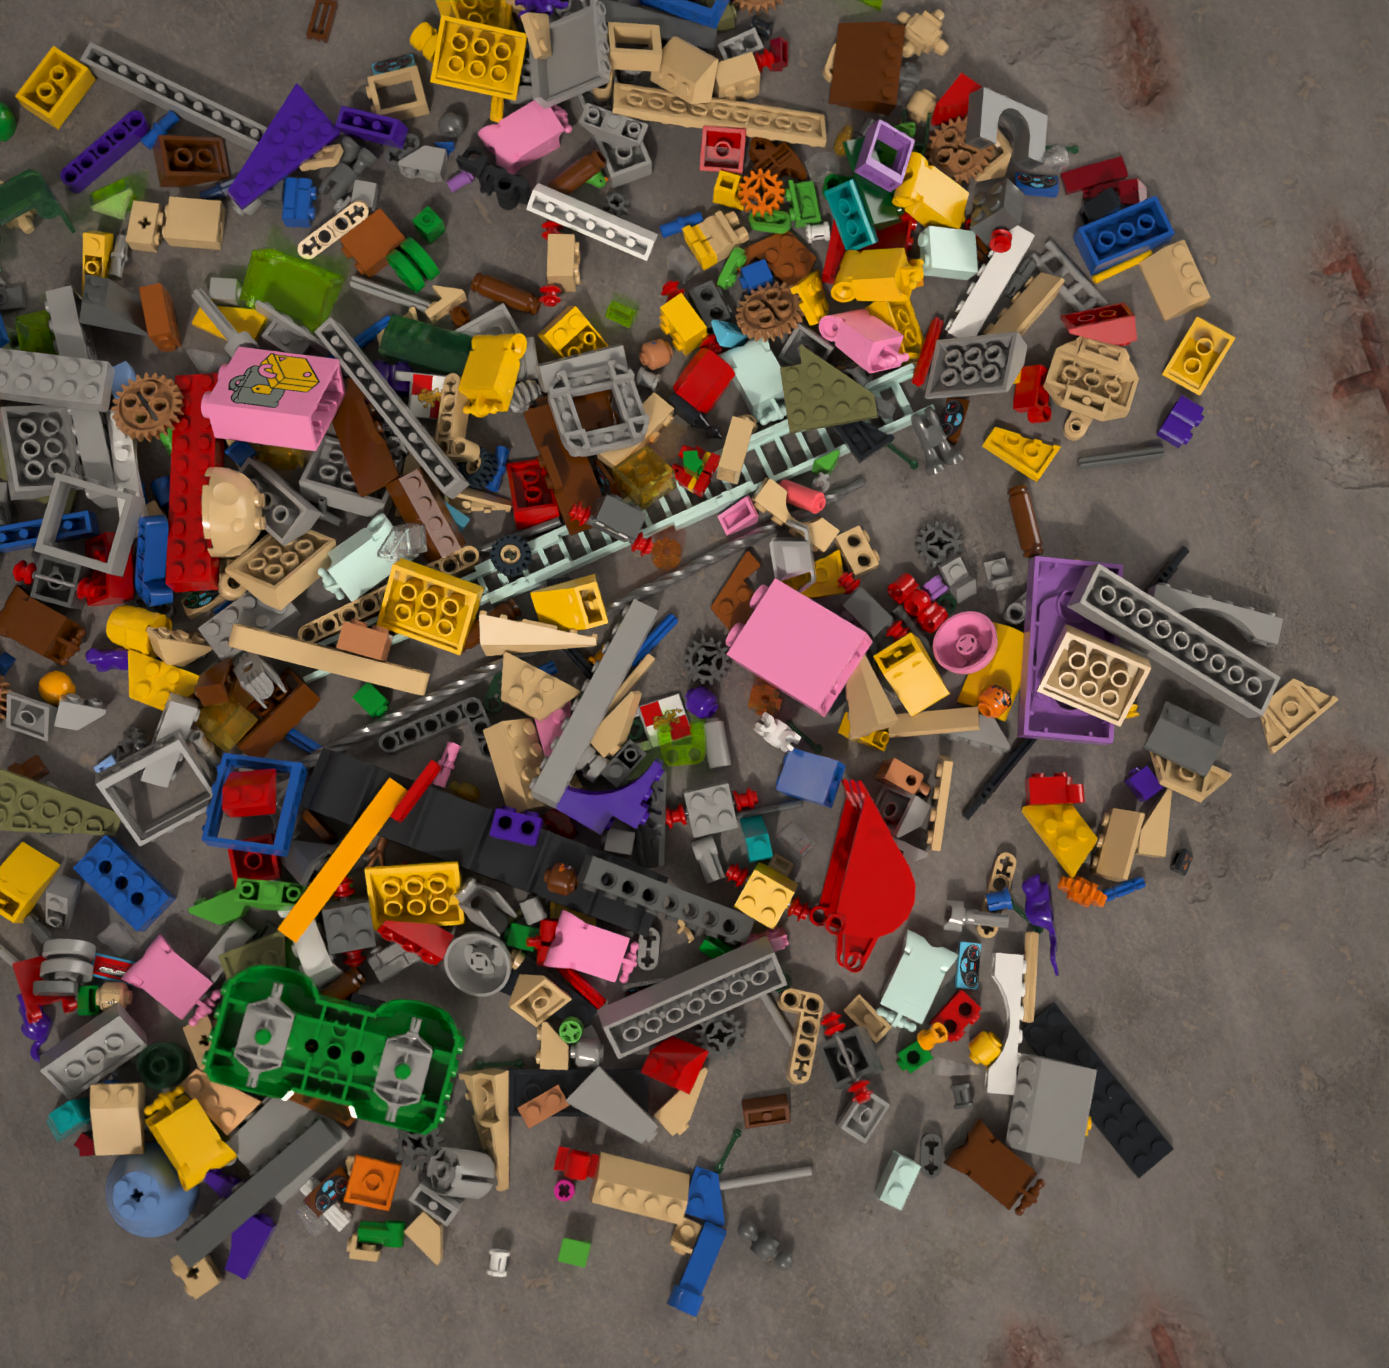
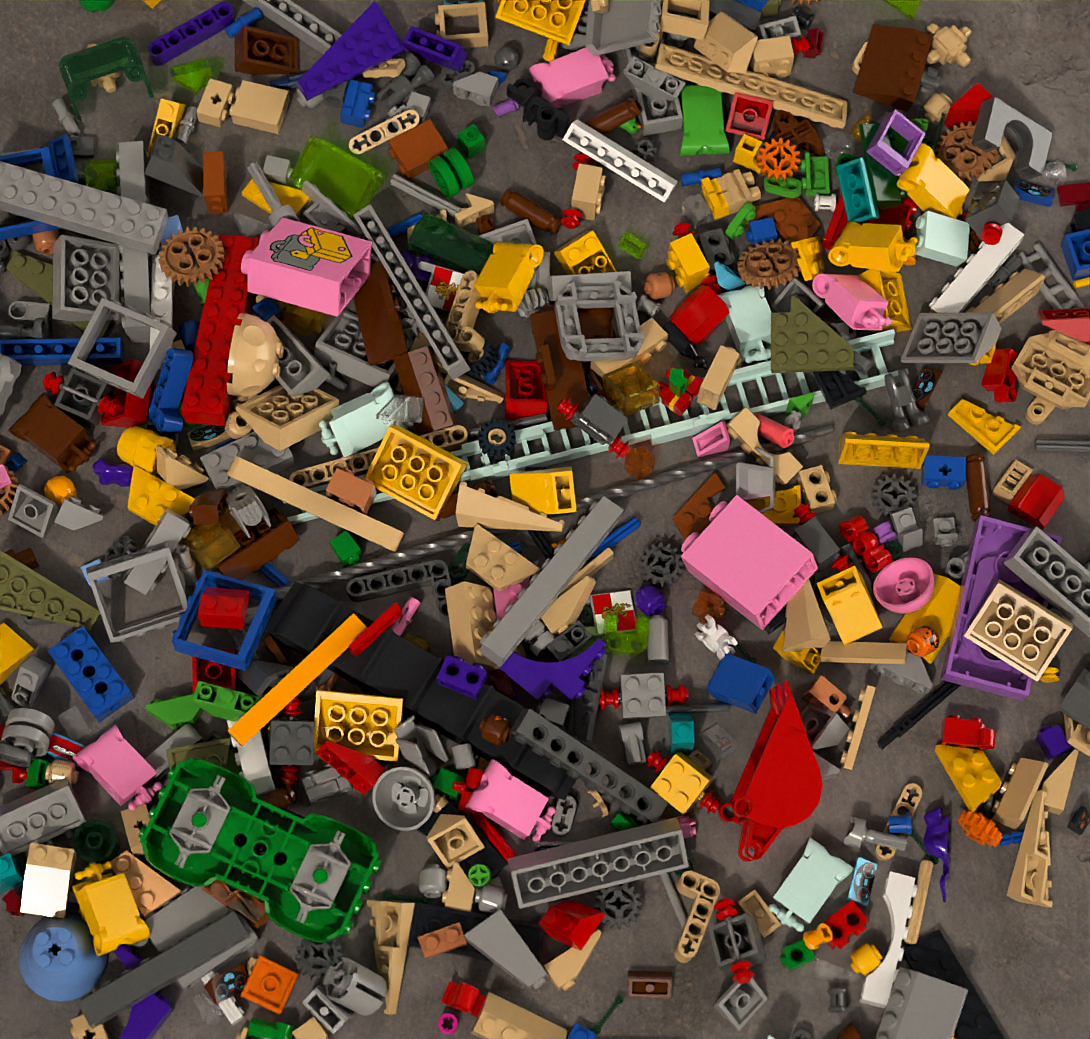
camera: 10 degrees right, 10 degrees down
(523, 1043) = (433, 881): none -> light grey head
(673, 163) = (702, 121): none -> bright green piece
(920, 497) = (882, 450): none -> yellow slope
(927, 352) = (909, 322): red axle -> none
(996, 503) = (953, 468): none -> blue brick
(1053, 519) = (1005, 492): none -> tan slope
(1089, 524) = (1037, 500): none -> red slope
(1140, 927) = (1029, 877): none -> tan wedge

